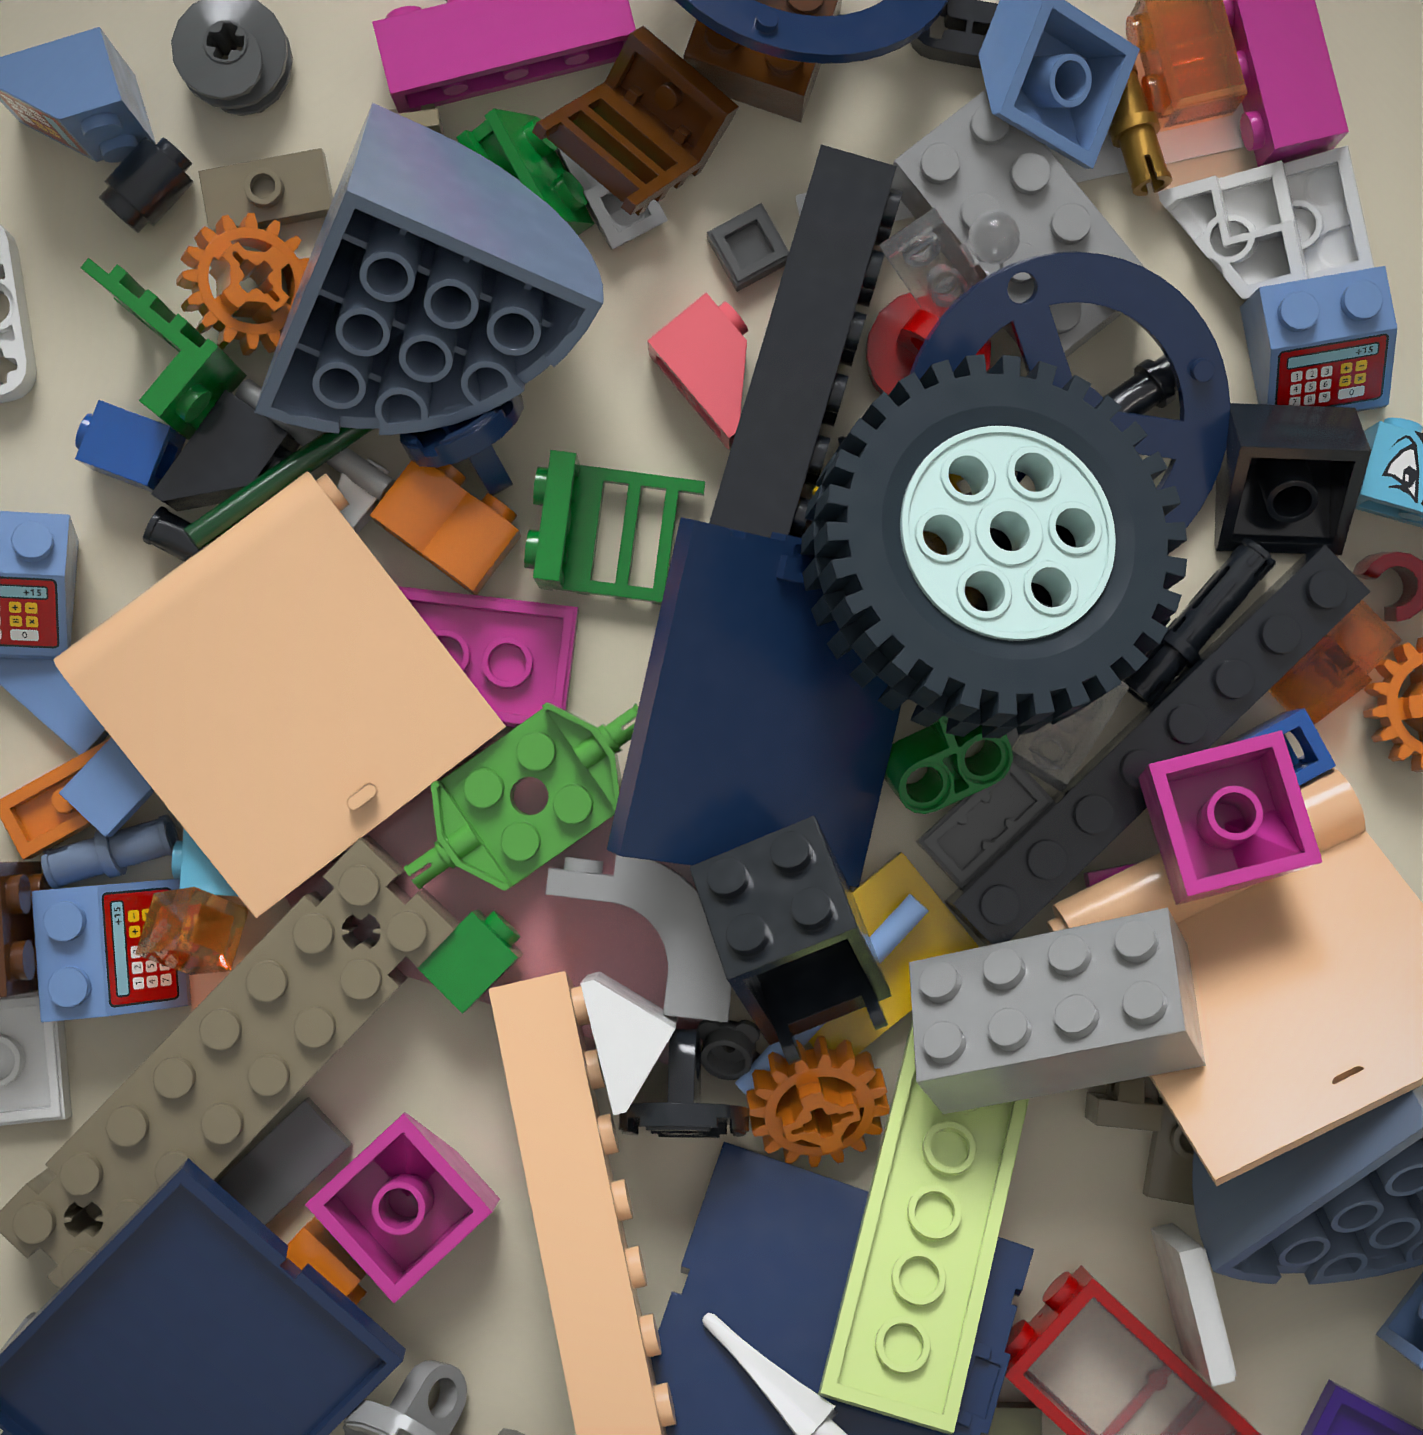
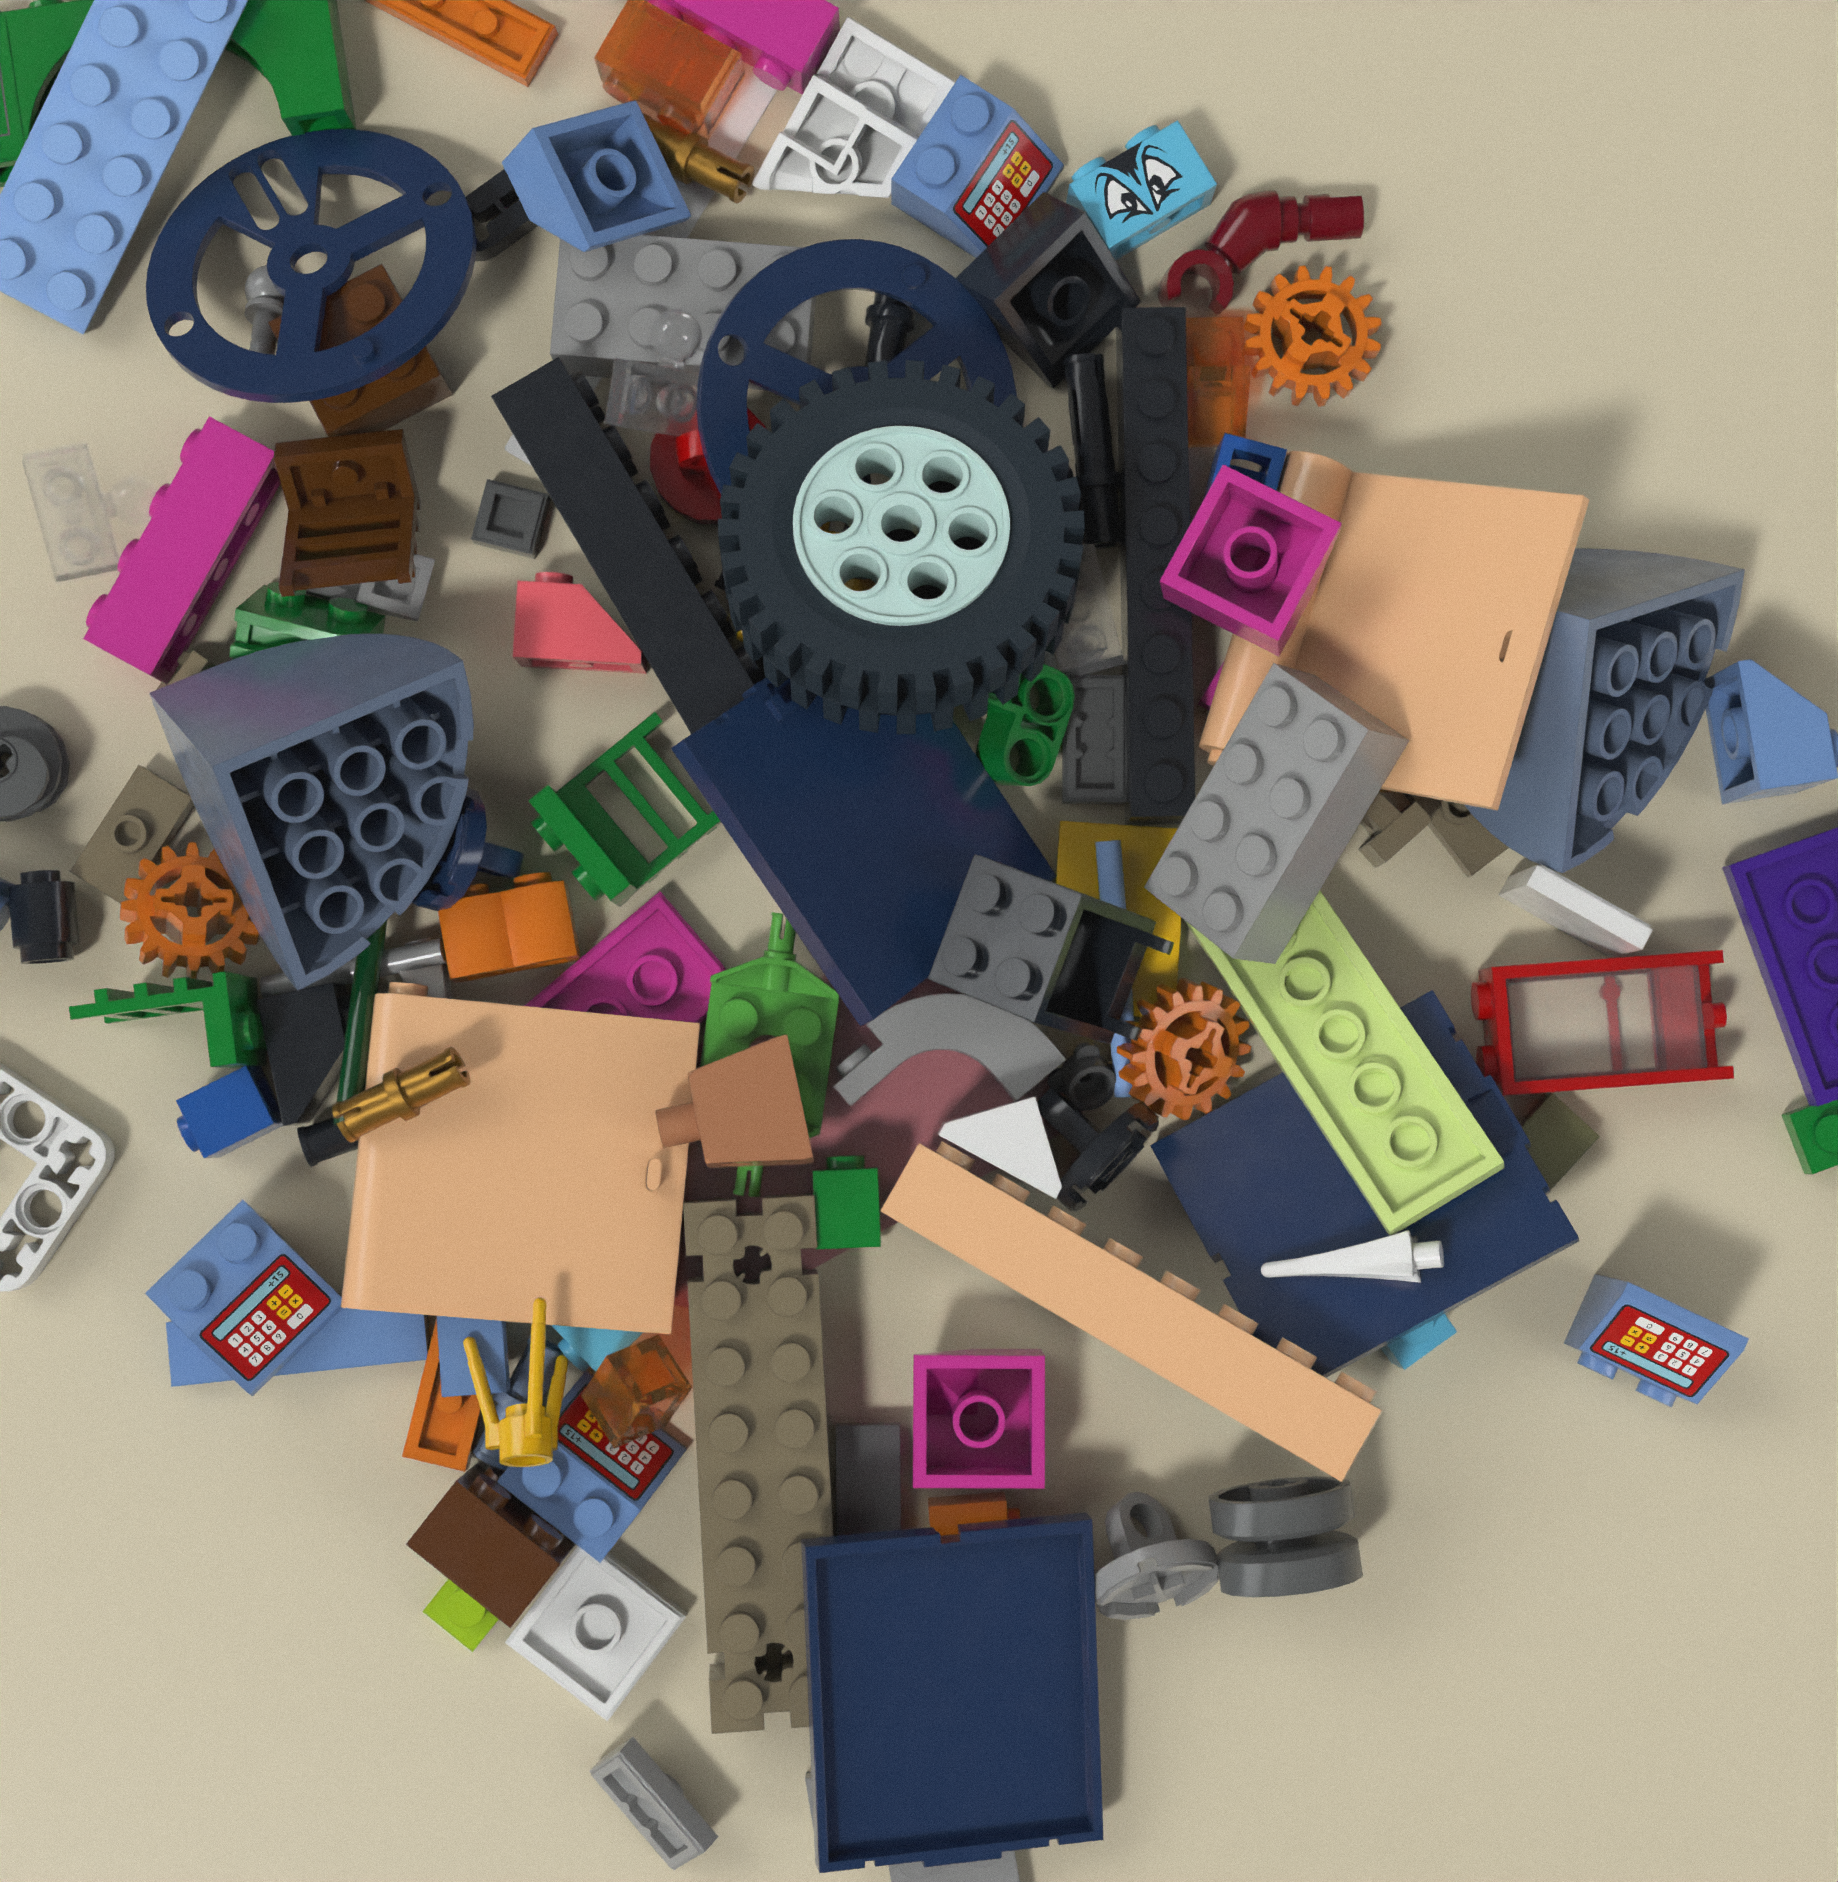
camera: 50 degrees left, 0 degrees up
(86, 880) = (529, 1429): none -> yellow plant
(246, 558) = (401, 1094): none -> pearl gold pin
(468, 819) = (743, 1110): none -> nougat torso

